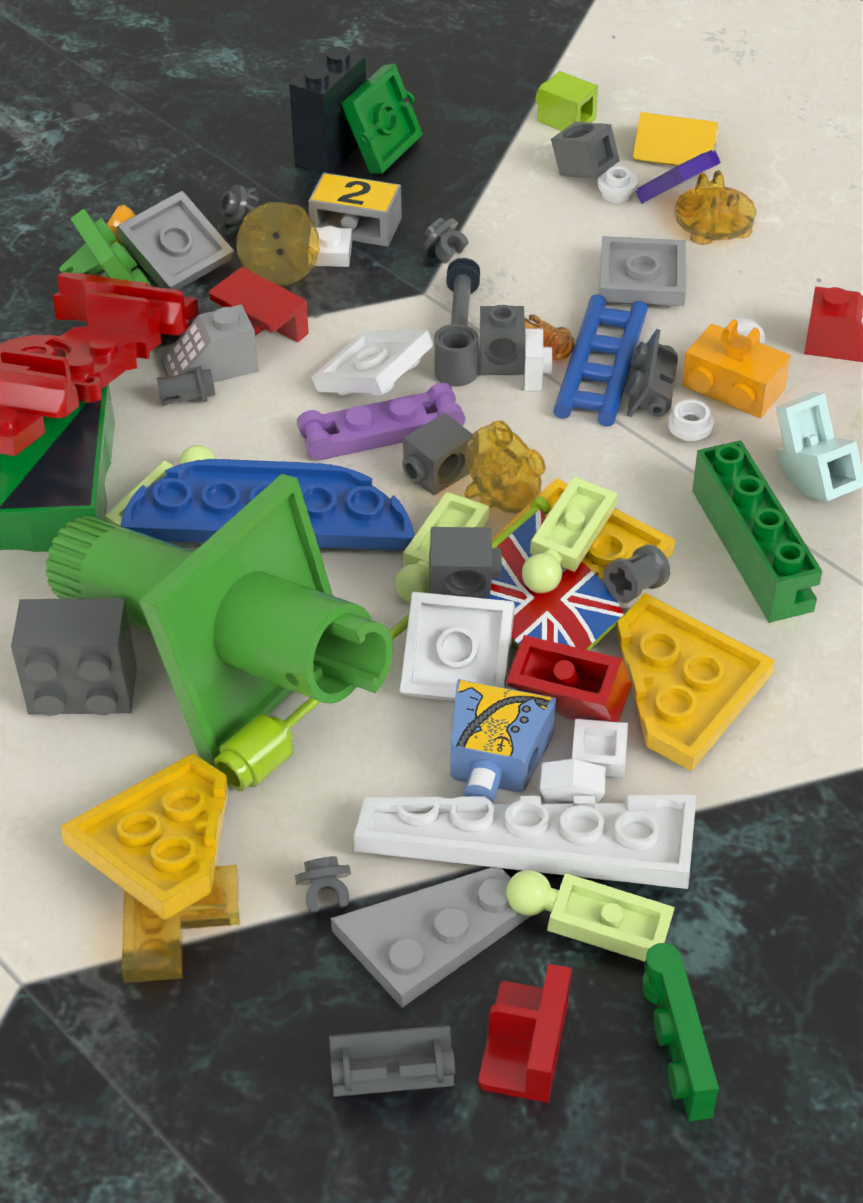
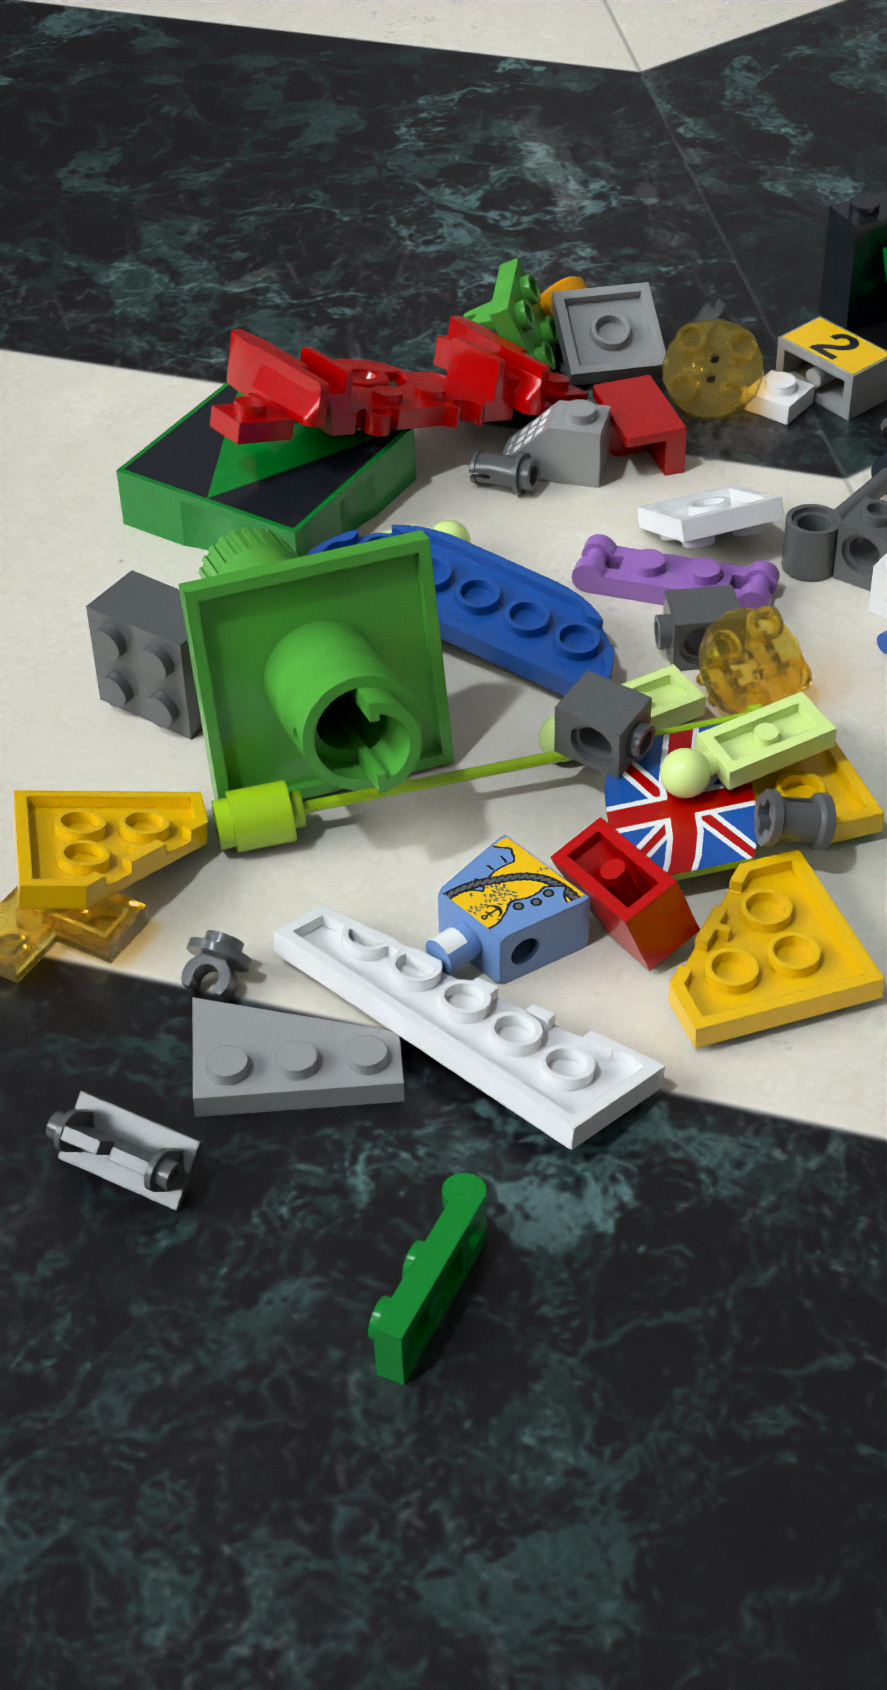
camera: 35 degrees right, 5 degrees down
(455, 641) = (539, 799): white plate -> none
(526, 1036) = (284, 1201): red panel -> none
(571, 778) = (547, 987): white piece -> none
(592, 912) = (451, 1121): yellowish green plate -> none
(601, 744) = (609, 975): white plate -> none

